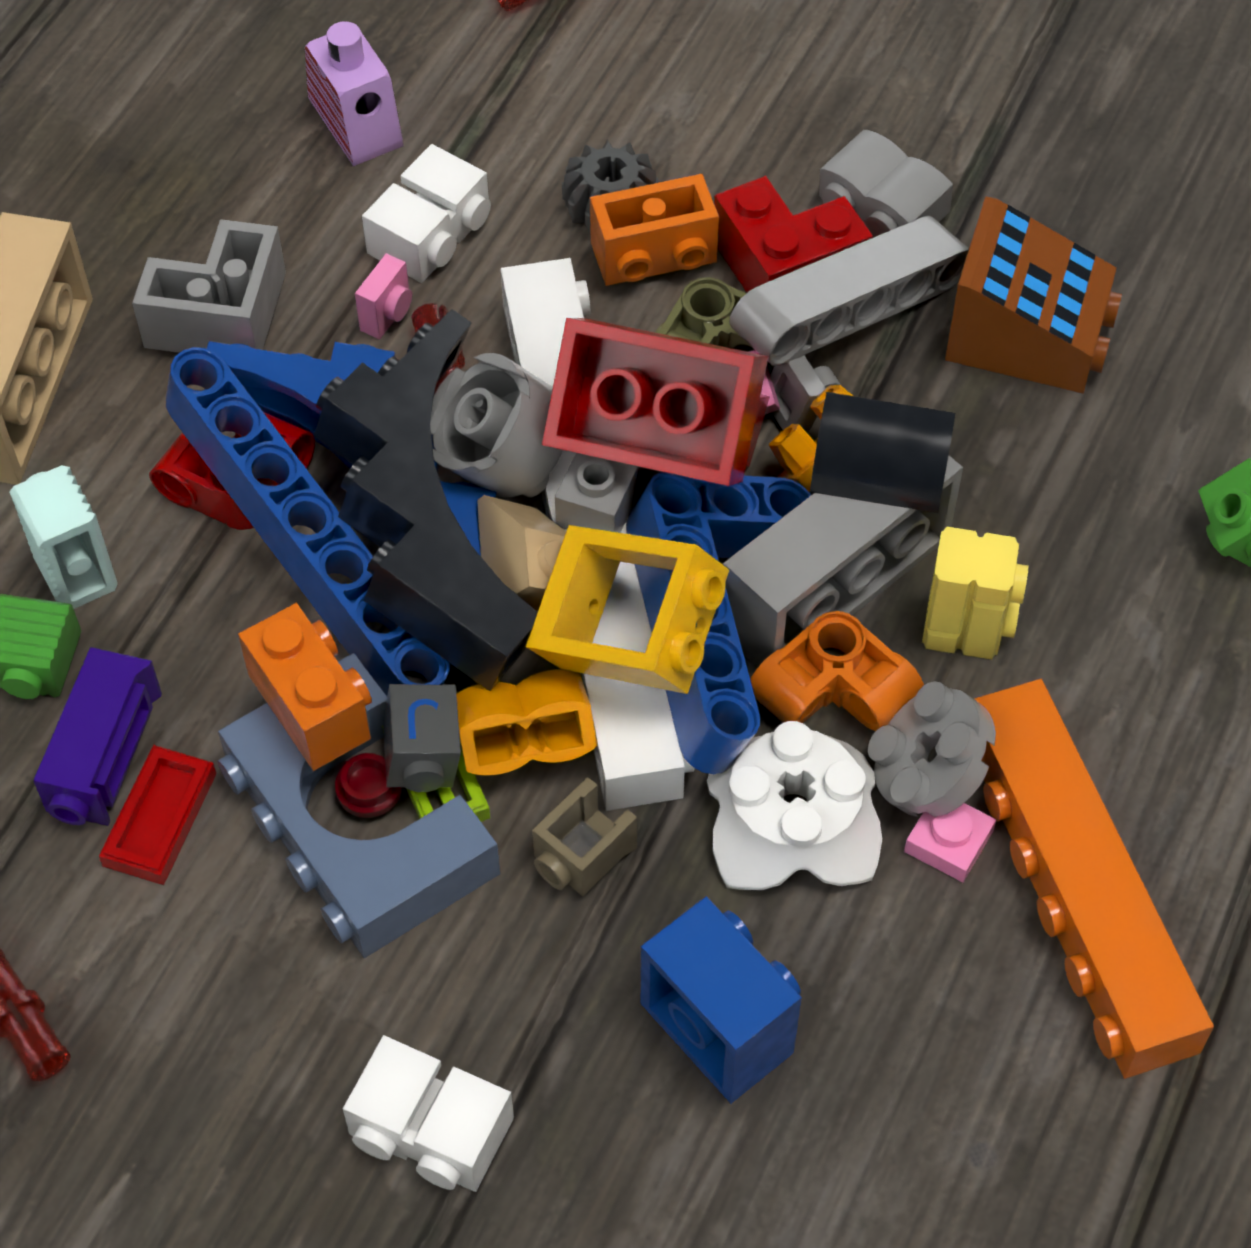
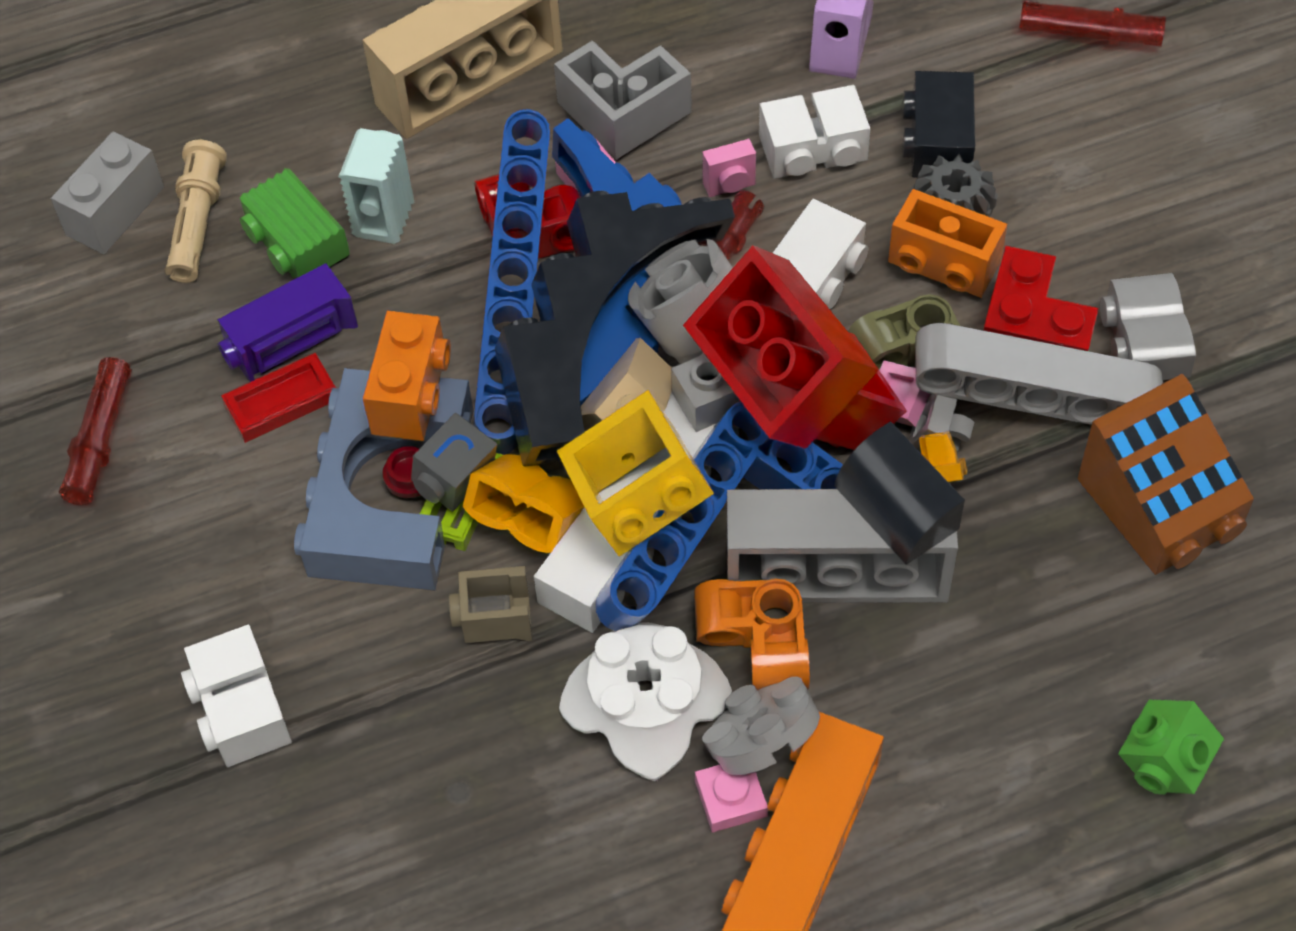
camera: 45 degrees right, 0 degrees up
(531, 130) = (941, 118): none -> black brick
(720, 997) = (458, 767): blue brick -> none
(974, 593) = (897, 642): light yellow brick -> none

